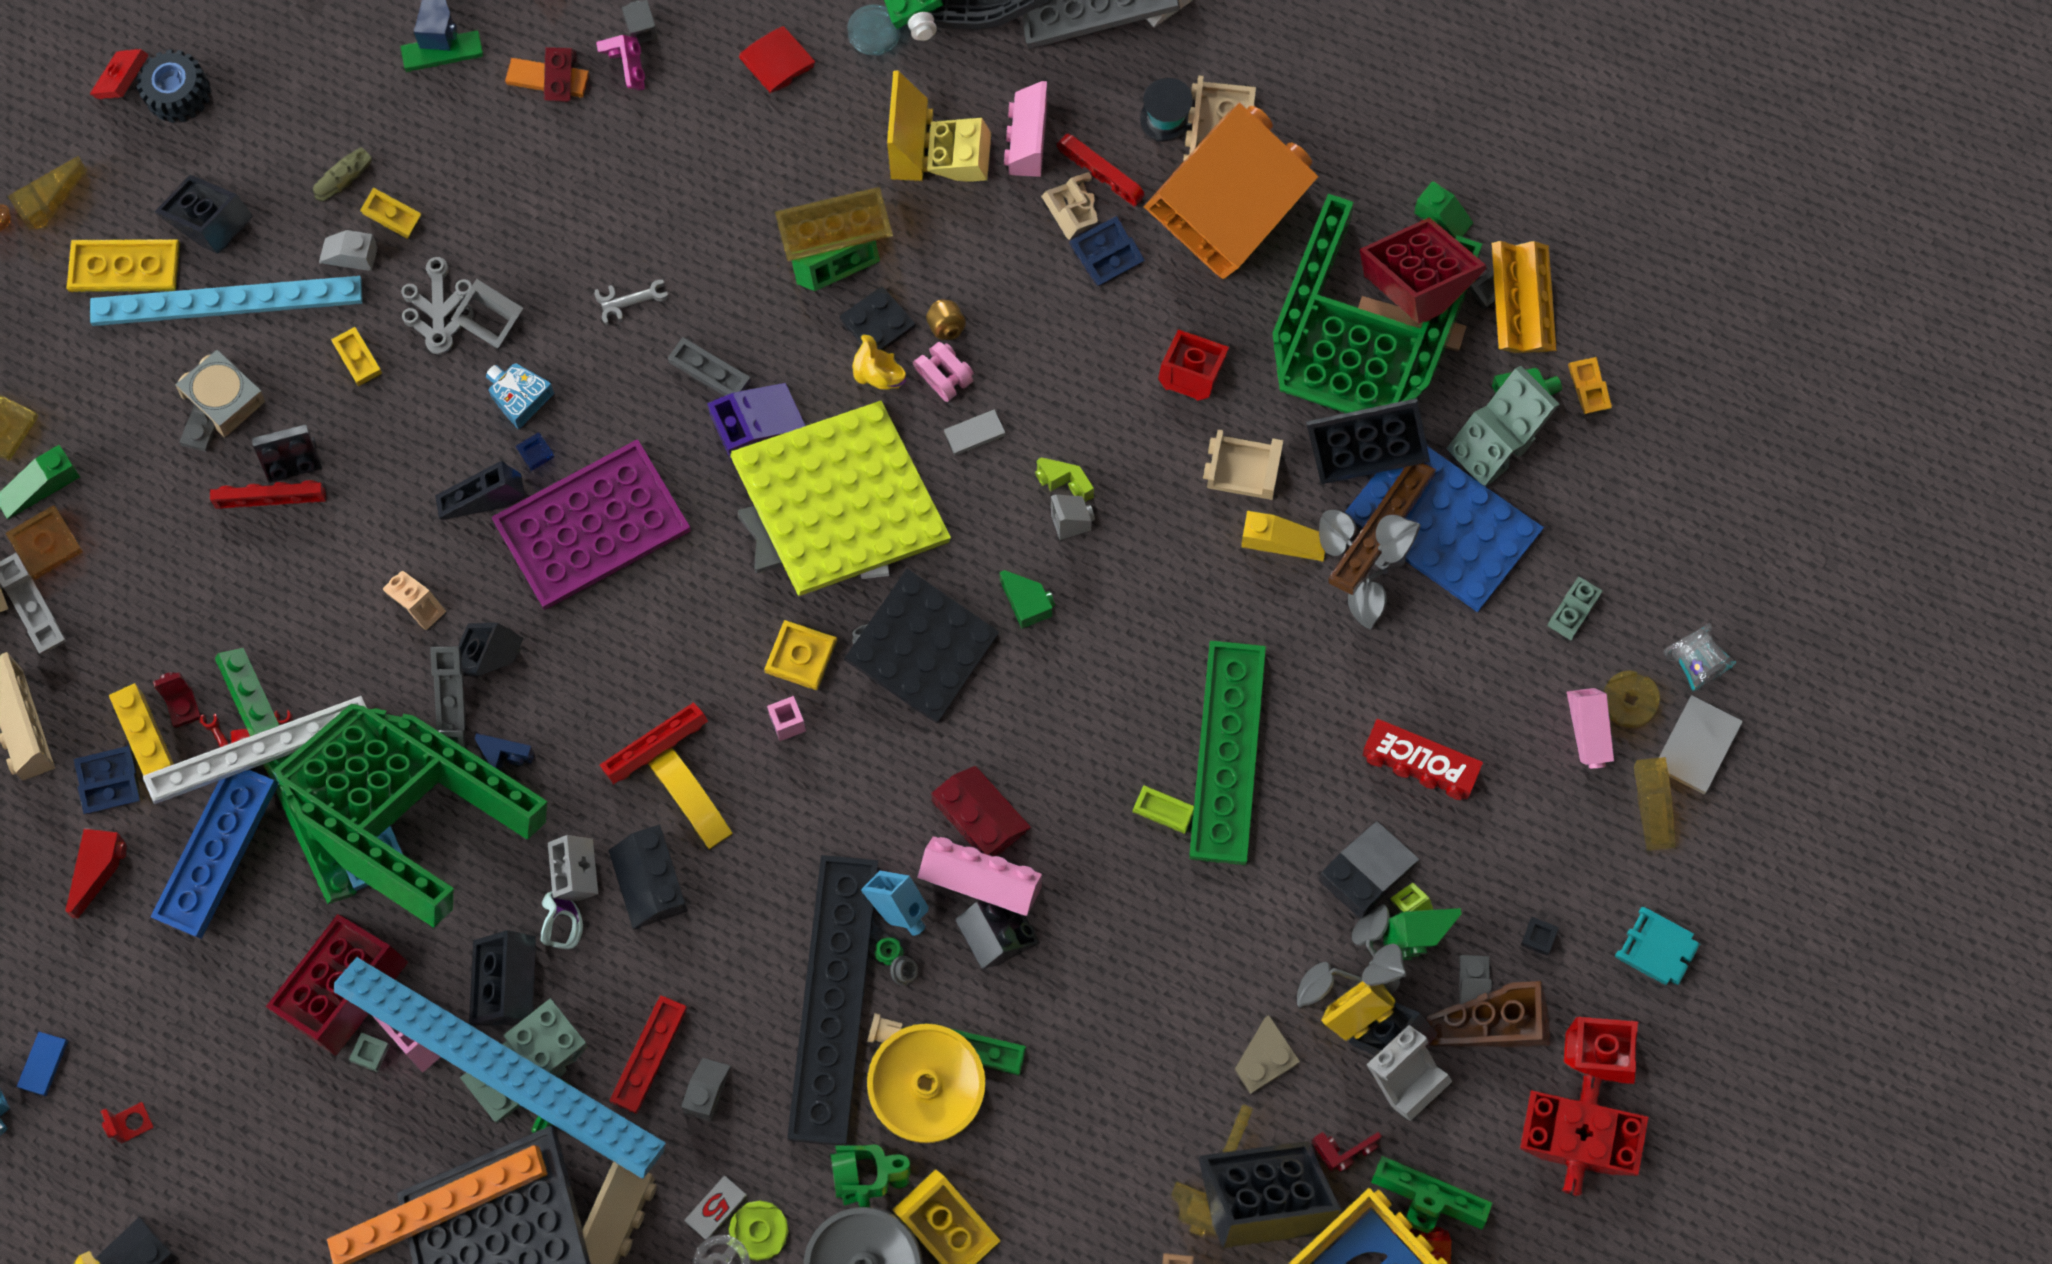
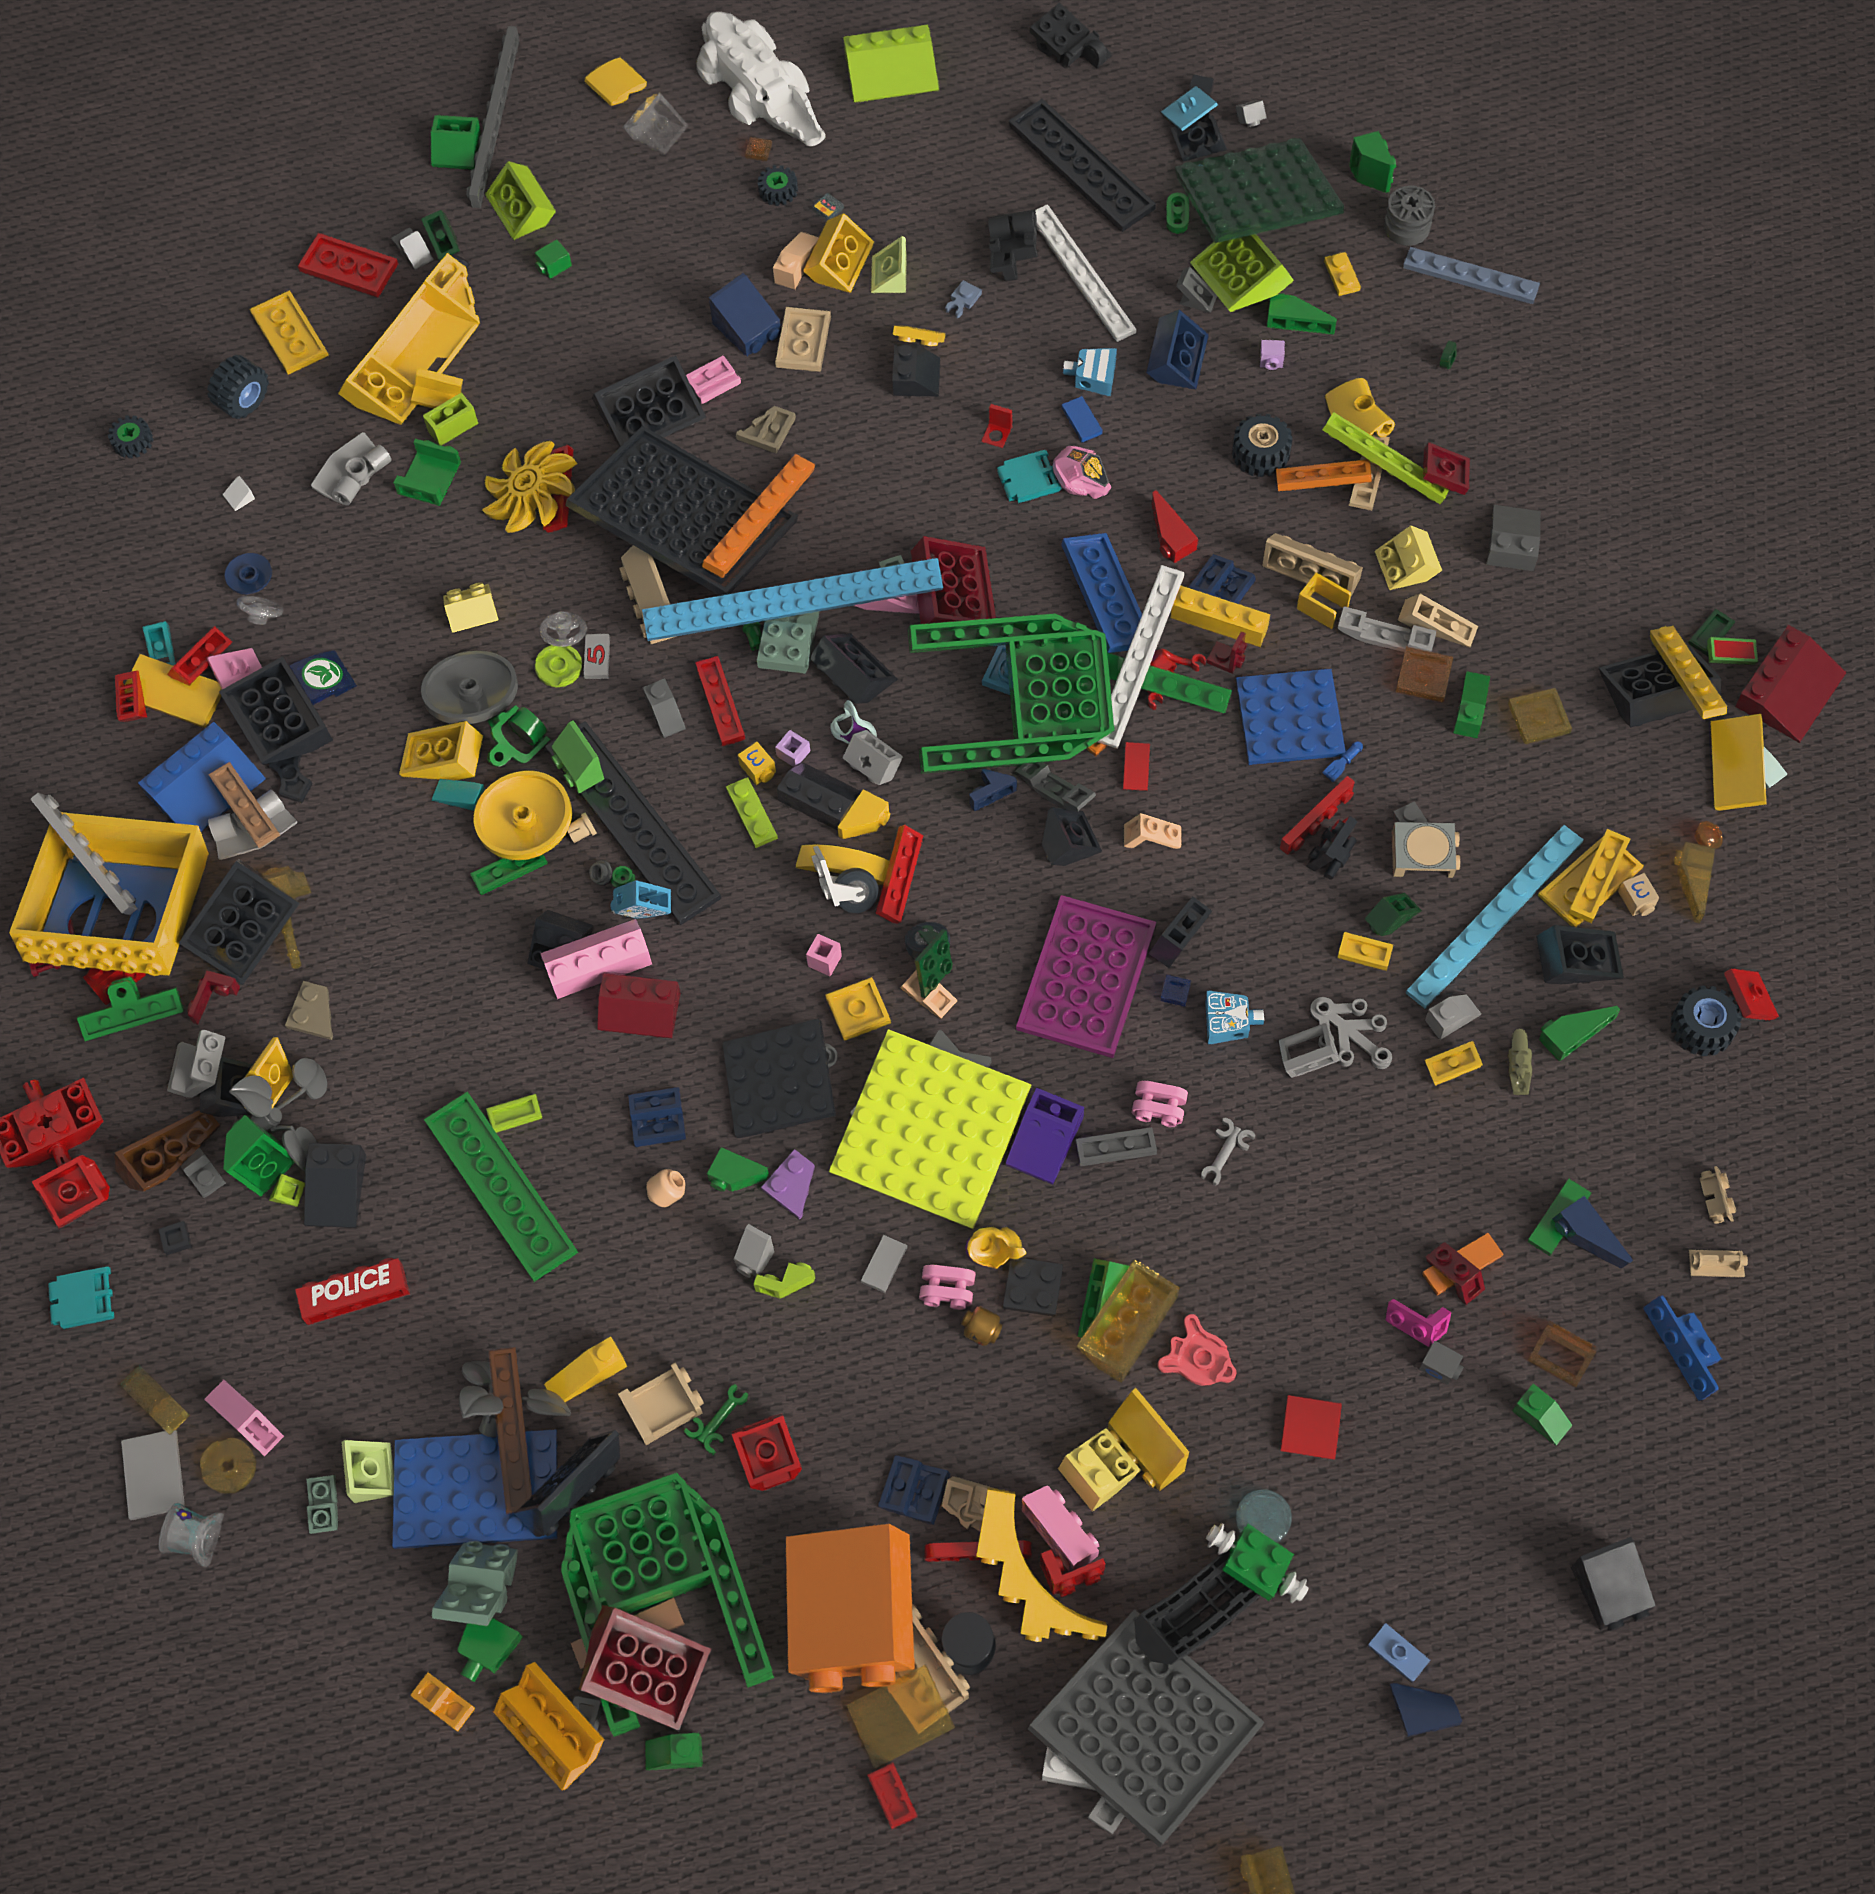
camera: 140 degrees right, 5 degrees down
(63, 693) = (1328, 590): none -> yellow piece
(104, 218) = (1639, 895): none -> tan brick
(105, 999) = (1081, 472): none -> bright pink helmet
(116, 253) = (1599, 876): none -> yellow plate
(154, 1042) = (1027, 478): none -> teal plate
(190, 605) = (1290, 716): none -> blue plate
(204, 528) = (1336, 768): none -> blue piece
(279, 162) = (1575, 1029): none -> green slope
(303, 364) = (1391, 914): none -> dark green slope
(361, 669) = (1136, 766): none -> red slope
(628, 817) = (864, 816): none -> yellow slope
(629, 933) = (789, 743): none -> lavender plate
(645, 358) = (1169, 1112): none -> bright pink brick
(675, 956) = (757, 763): none -> yellow brick
(690, 656) = (930, 947): none -> dark green plate
(713, 762) = (852, 890): none -> plate
(722, 918) = (751, 812): none -> lime plate
(730, 620) = (937, 1002): none -> light nougat slope
(805, 172) = (1199, 1356): none -> coral tile
(833, 1086) = (576, 758): none -> bright green slope
(963, 1169) = (458, 793): none -> teal slope
(987, 556) = (791, 1183): none -> medium lavender wing
(1041, 715) = (655, 1106): none -> dark blue slope
(1058, 92) = (1065, 1583): none -> red bracket
(1094, 94) = (1017, 1582): none -> yellow arch
(1094, 629) = (665, 1188): none -> light nougat head
(1228, 418) = (708, 1434): none -> green bar
(1275, 100) = (900, 1716): none -> clear yellow piece
(1309, 66) = (892, 1795): none -> red plate
(1518, 600) = (368, 1470): none -> yellowish green slope

